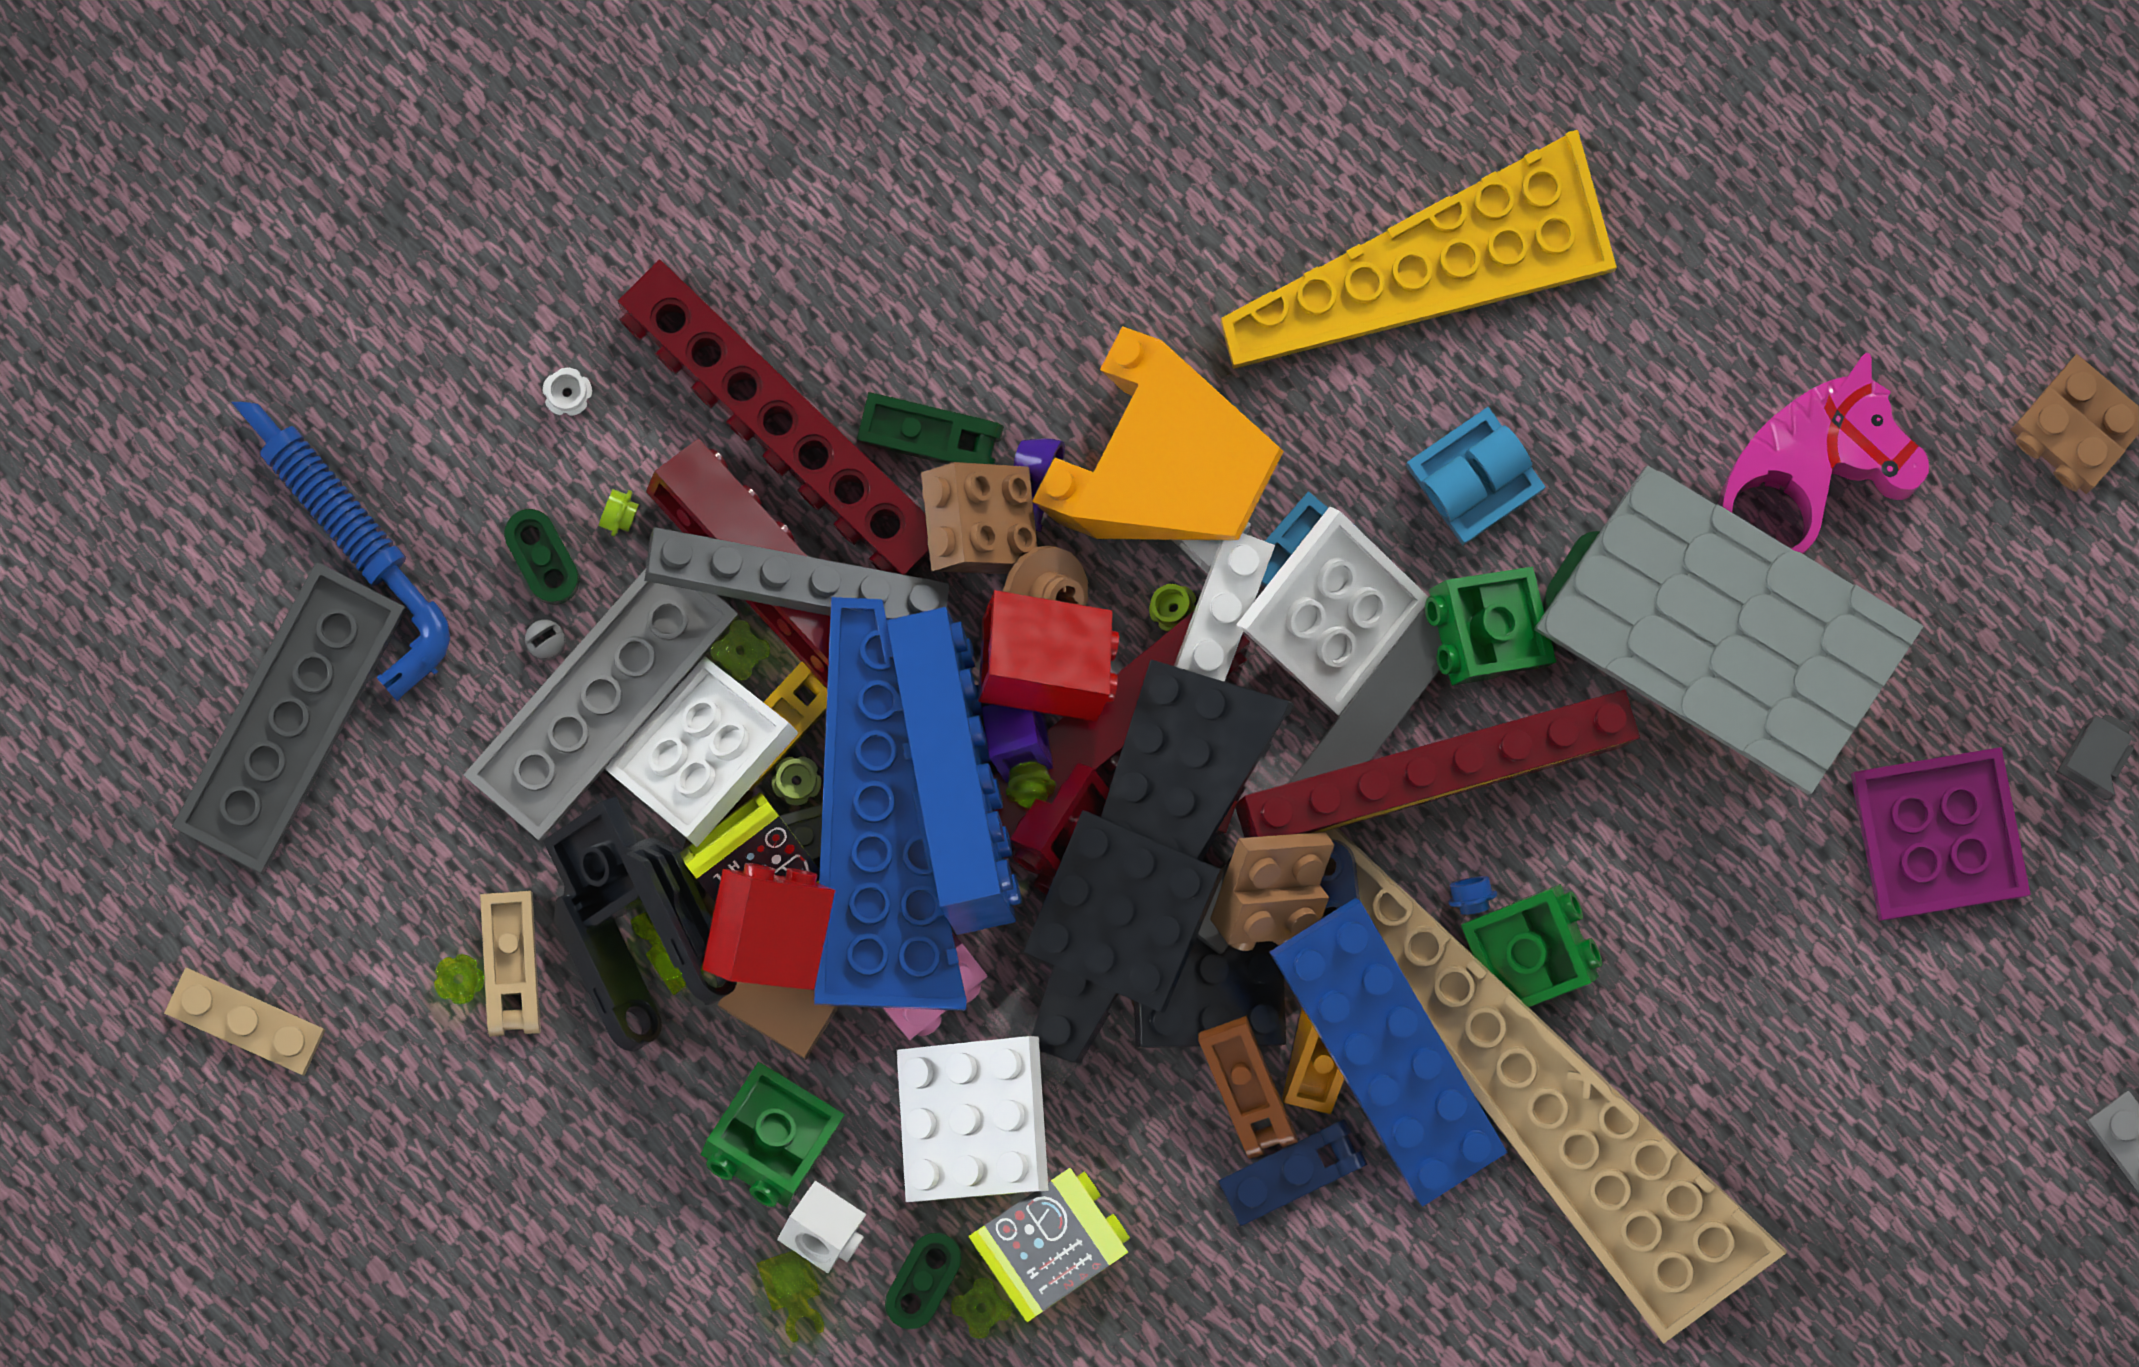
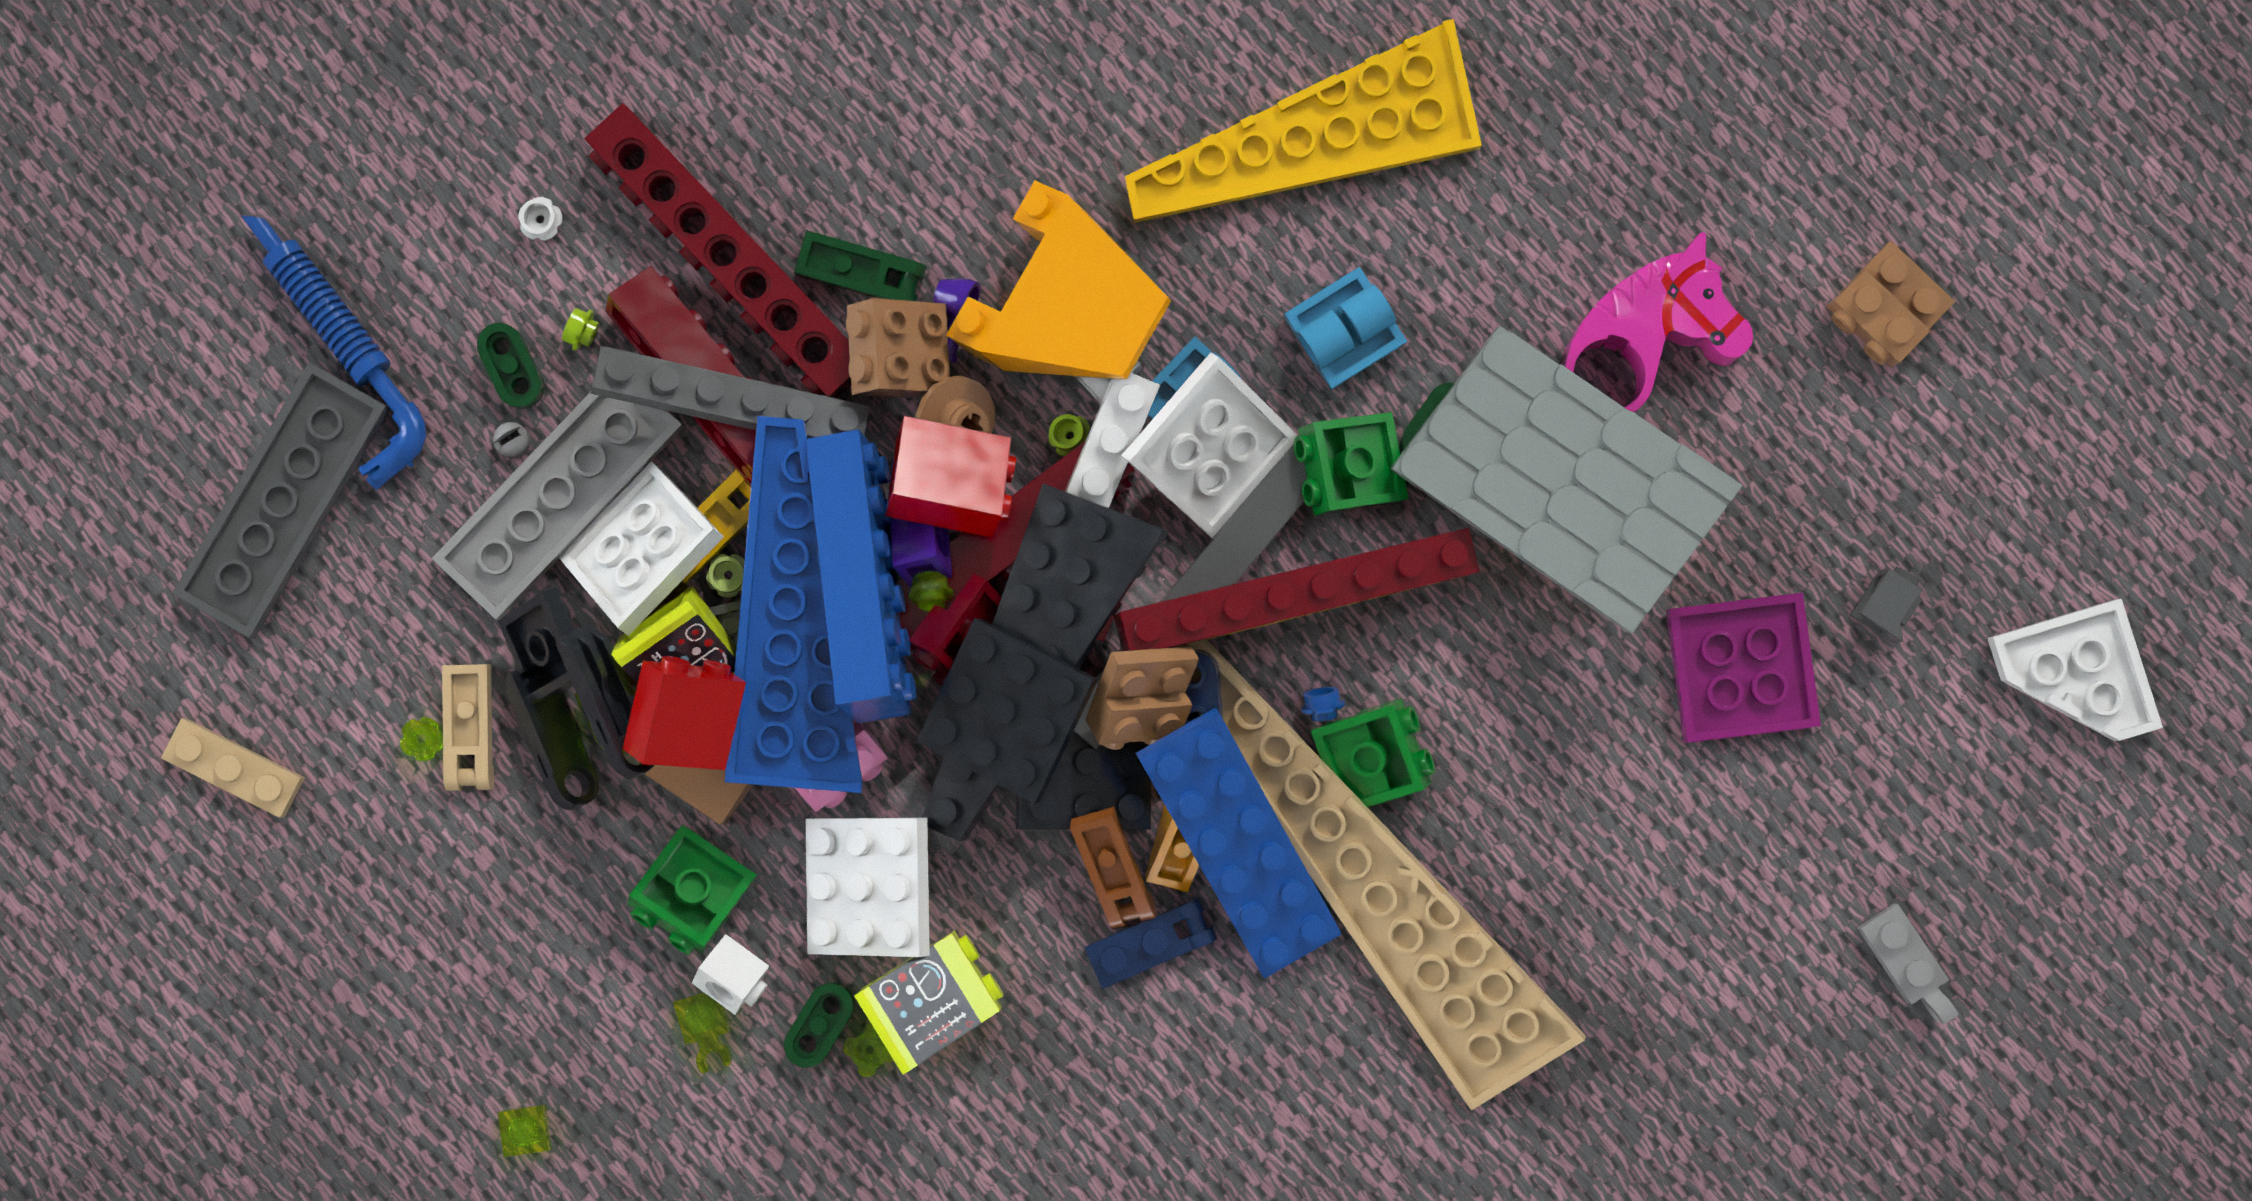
camera: 10 degrees right, 5 degrees up
(726, 653) = (669, 457): clear neon green plate -> none

